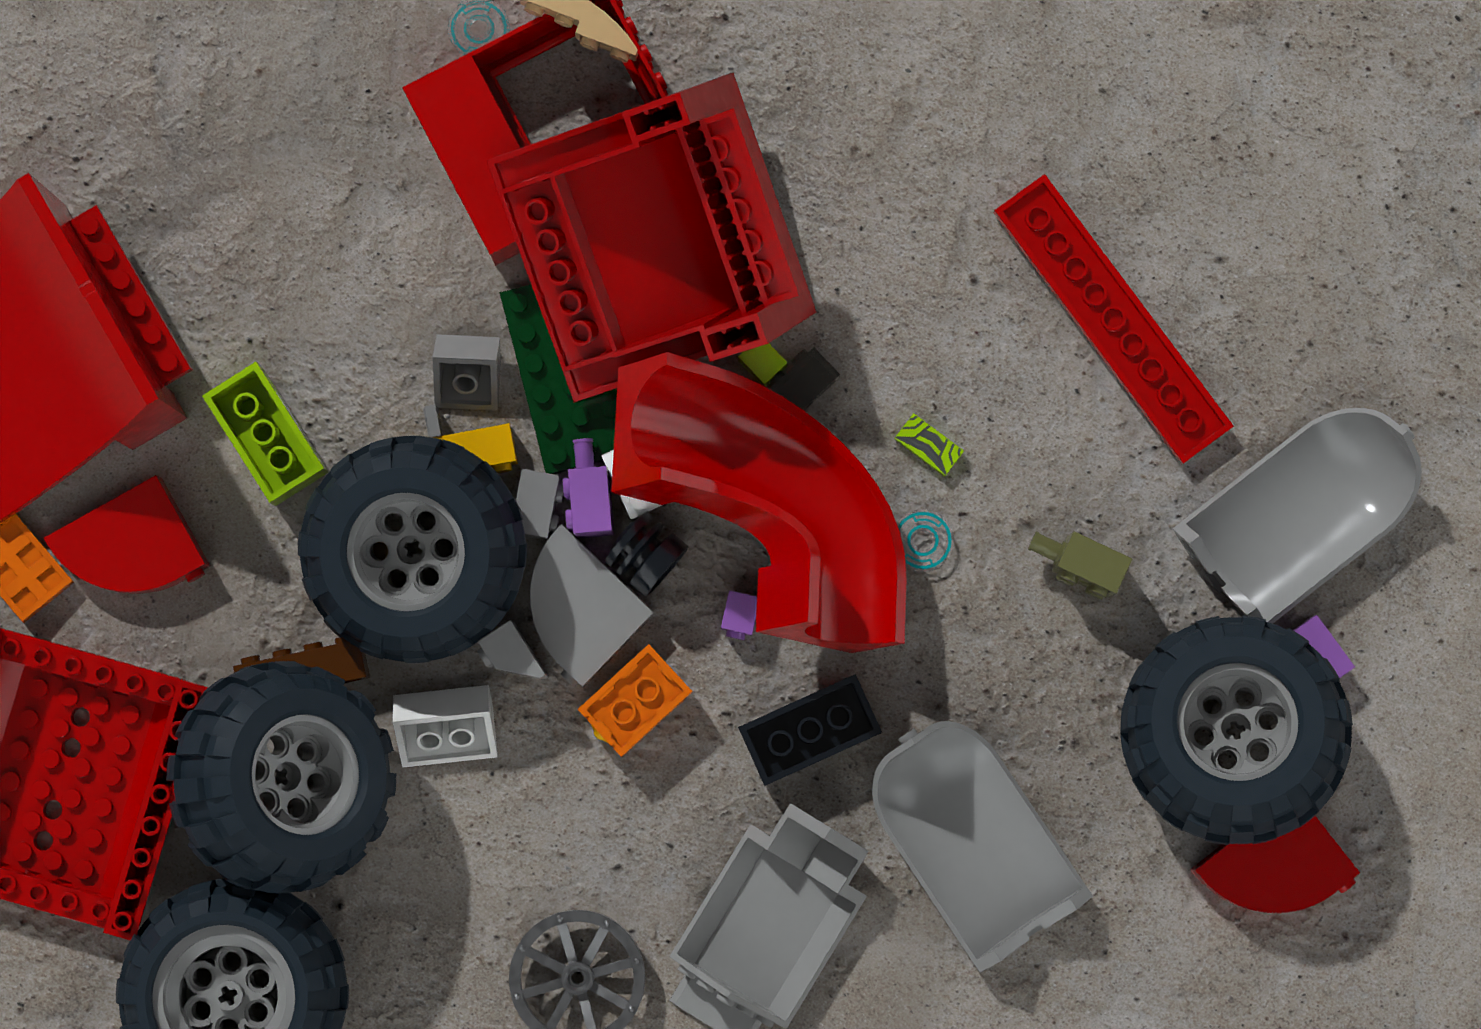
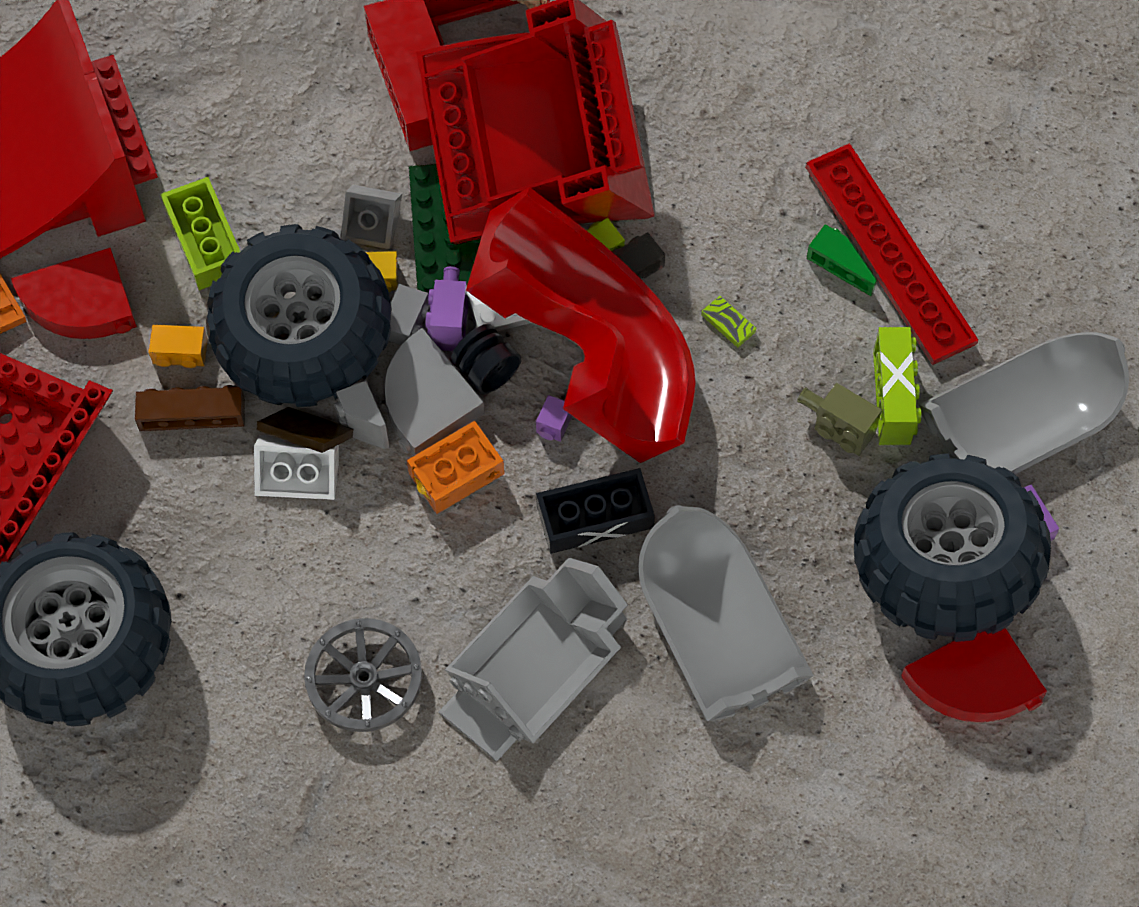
camera: 10 degrees right, 20 degrees down
(227, 765) = (134, 488): black wheel -> none
(268, 590) = (178, 345): none -> light orange brick
(449, 687) = (305, 429): none -> dark brown tile
(941, 535) = (723, 380): clear tile -> none
(1050, 336) = (838, 256): none -> green slope
(1142, 509) = (895, 385): none -> lime brick

